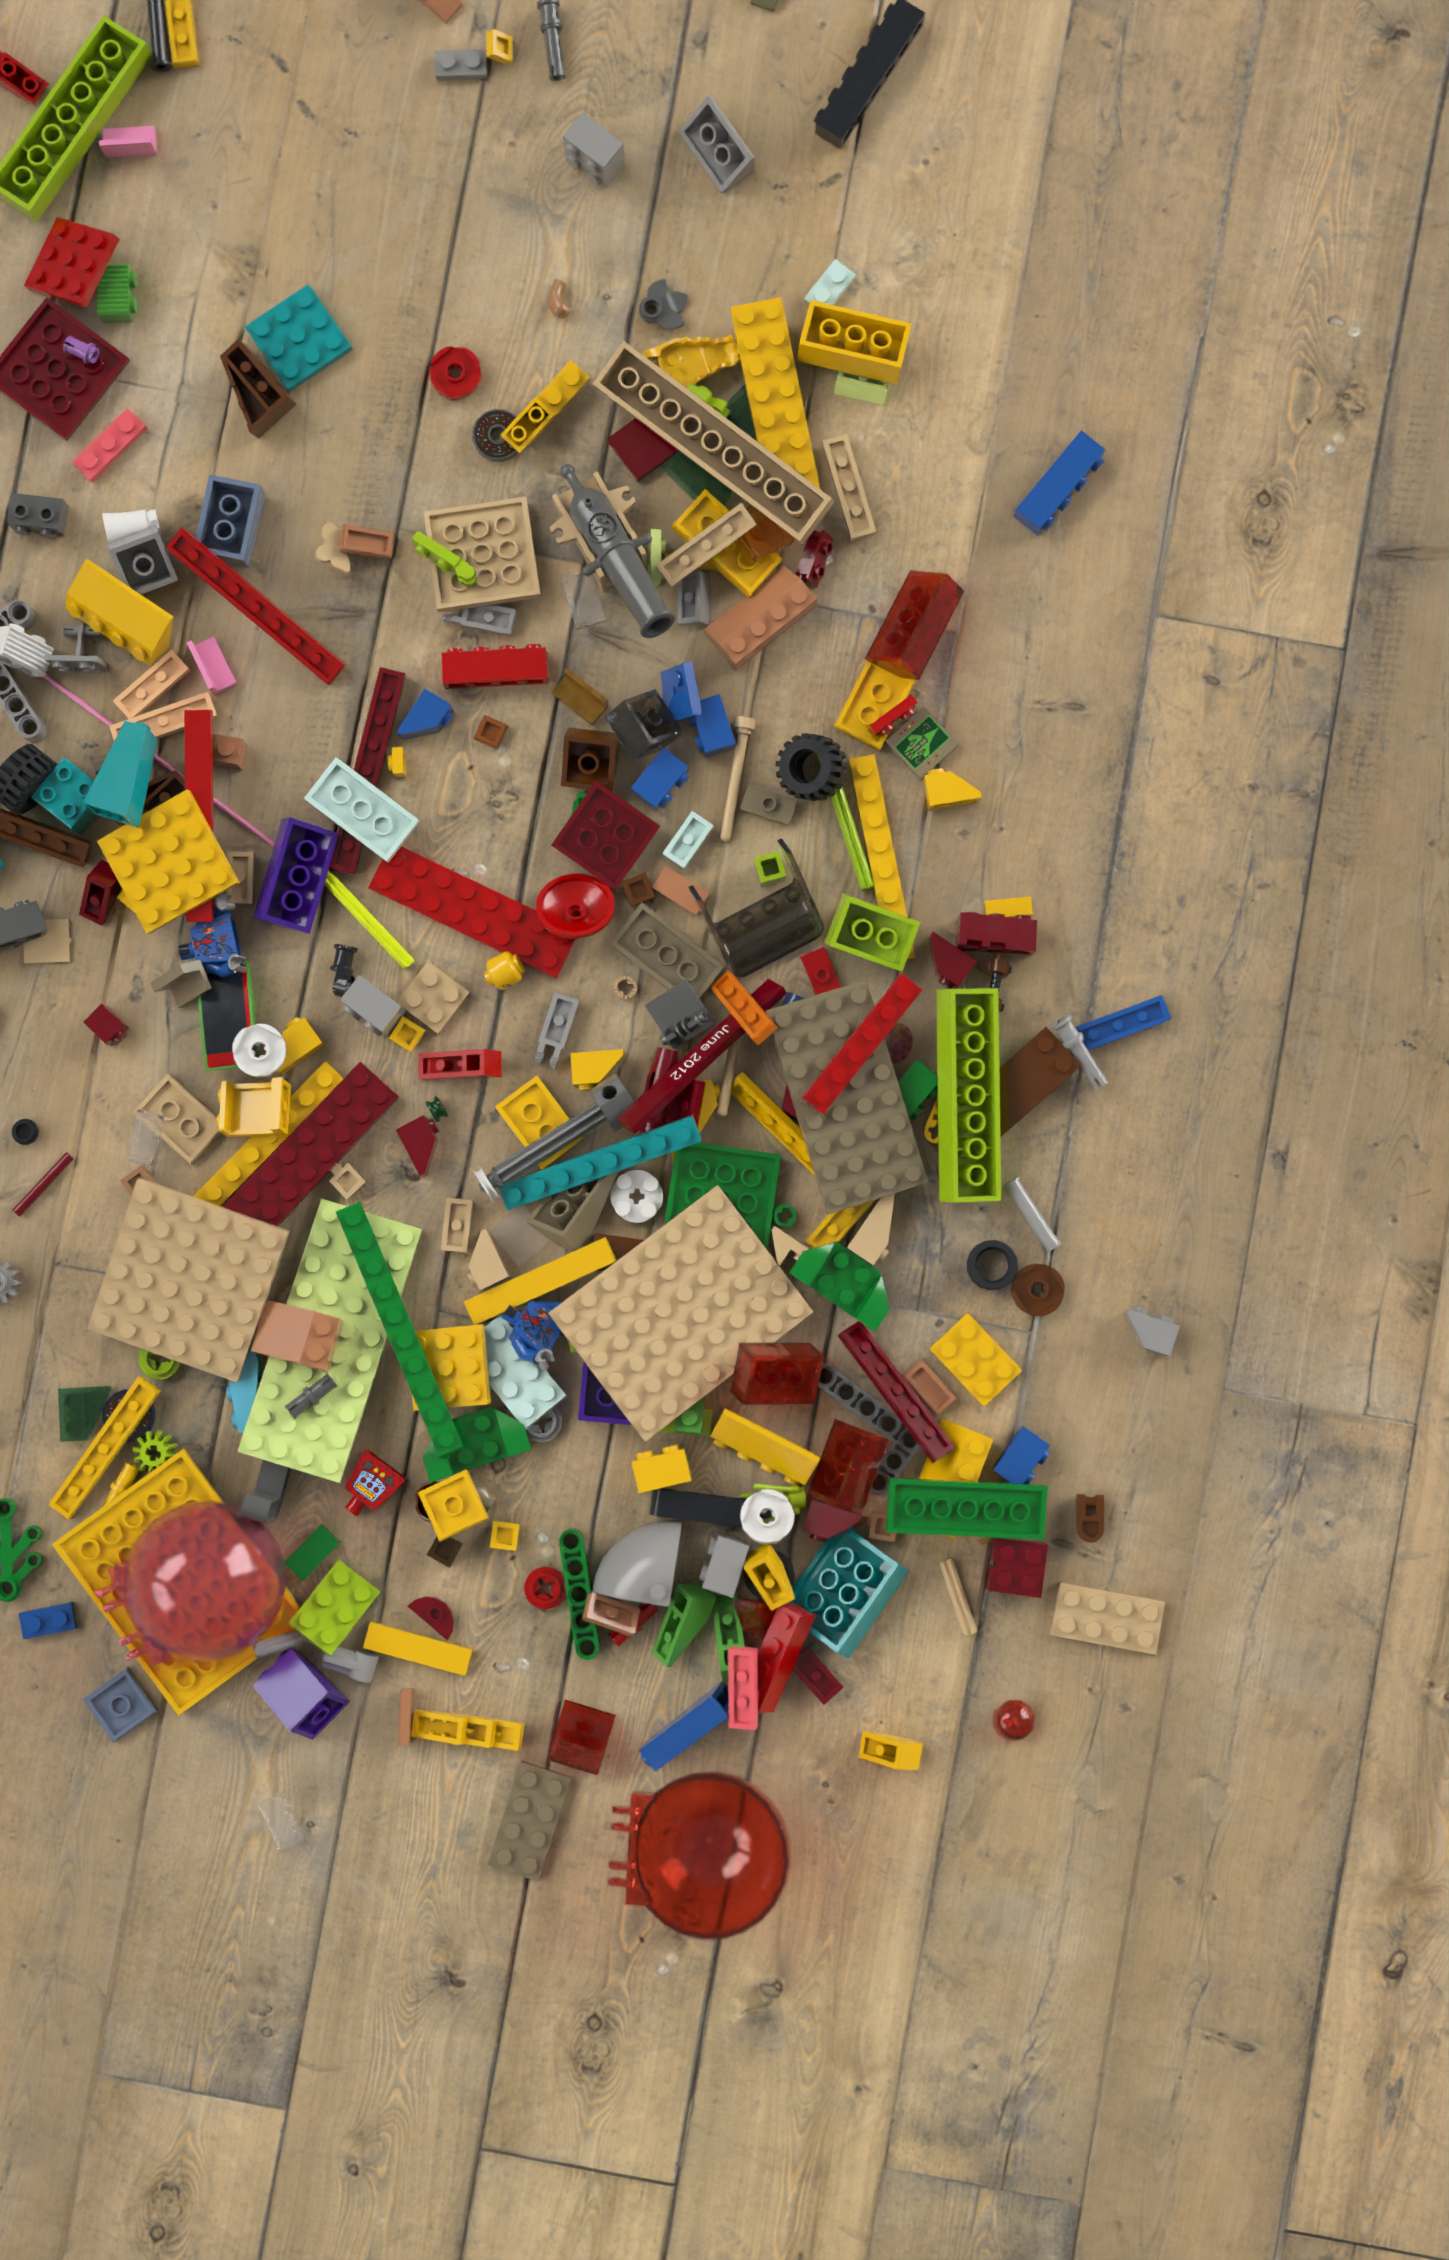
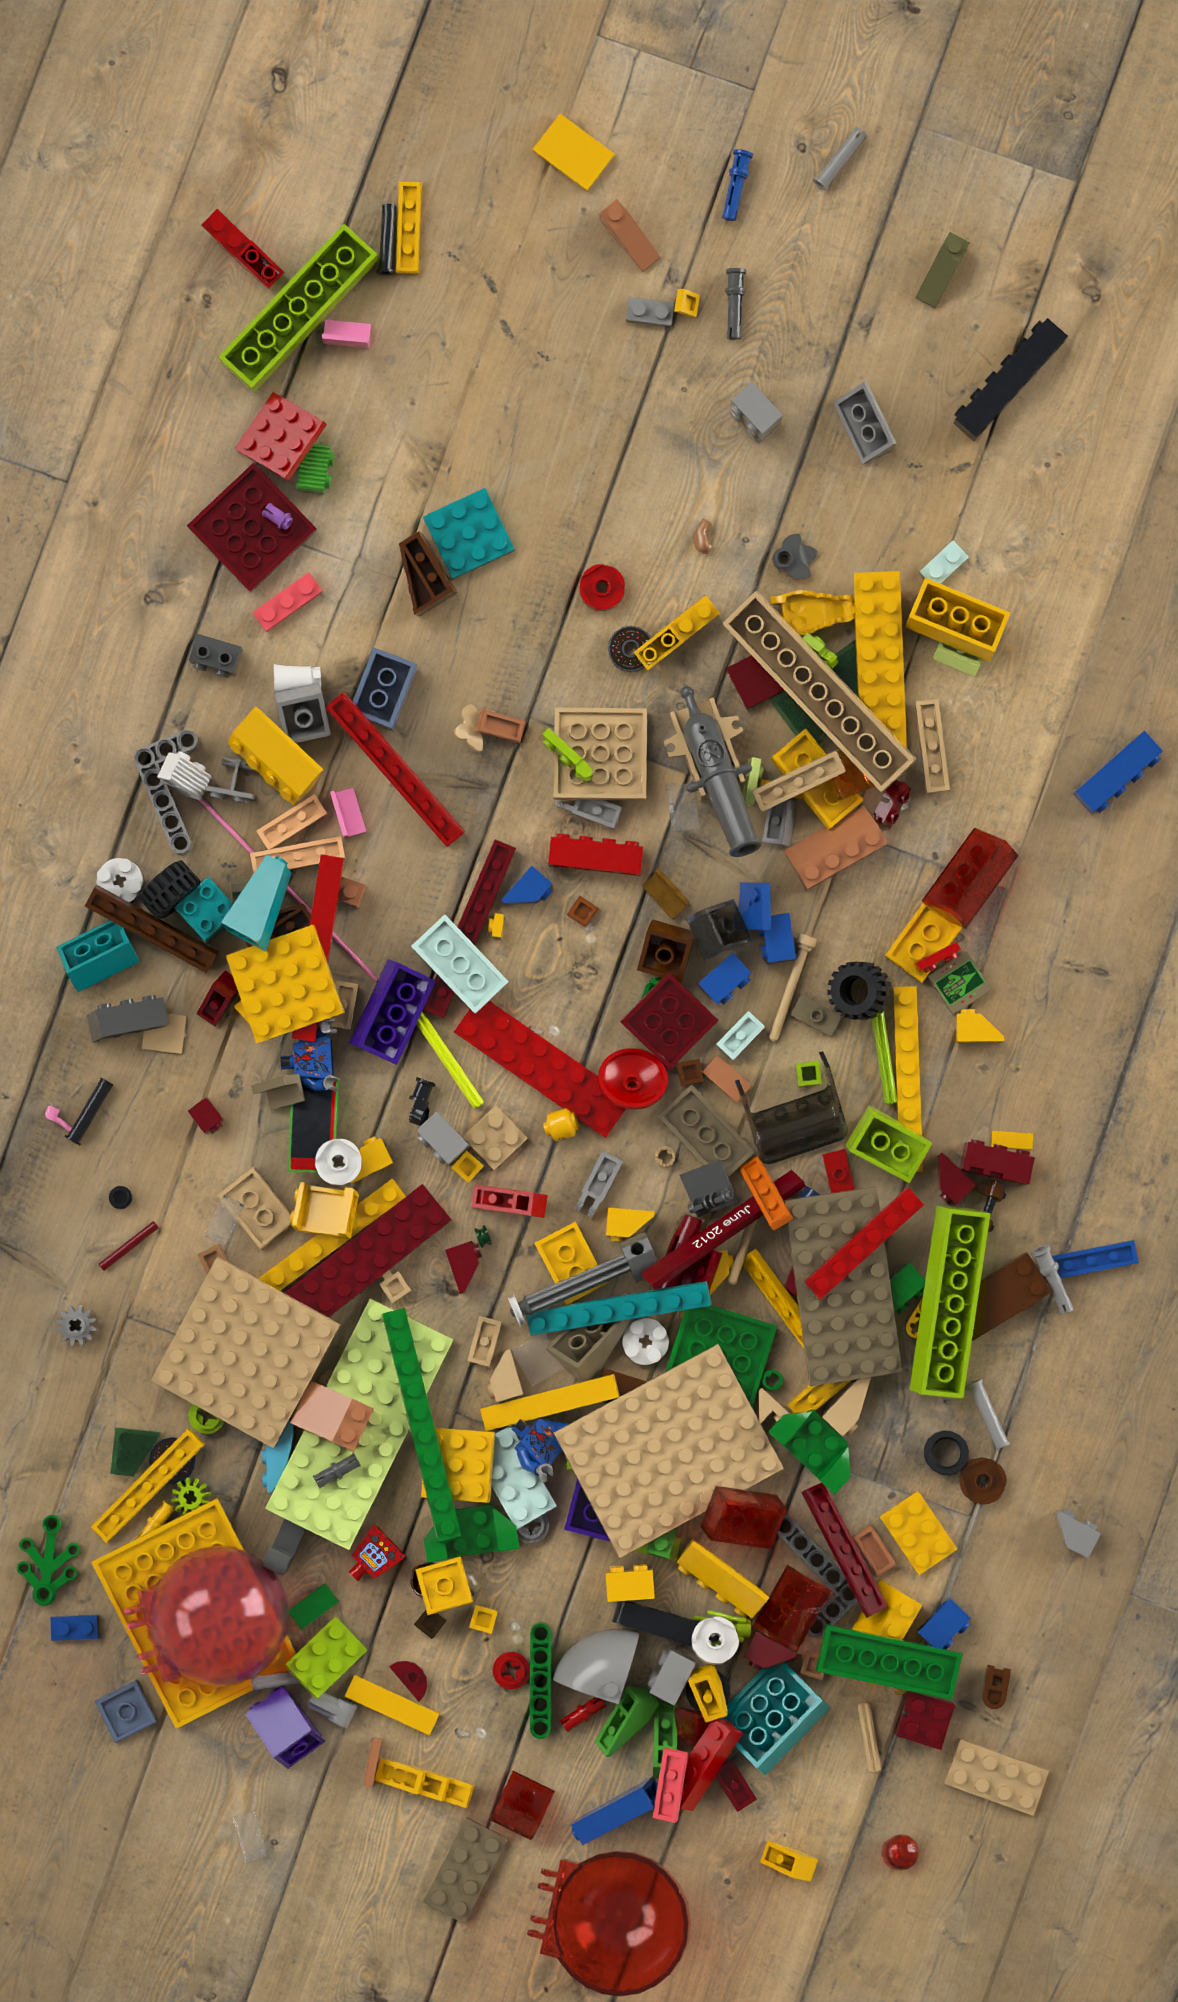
camera: 10 degrees right, 0 degrees up
(611, 1614) = (566, 1702): nougat plate -> none
(902, 1046) = (898, 1248): clear pink gear -> none

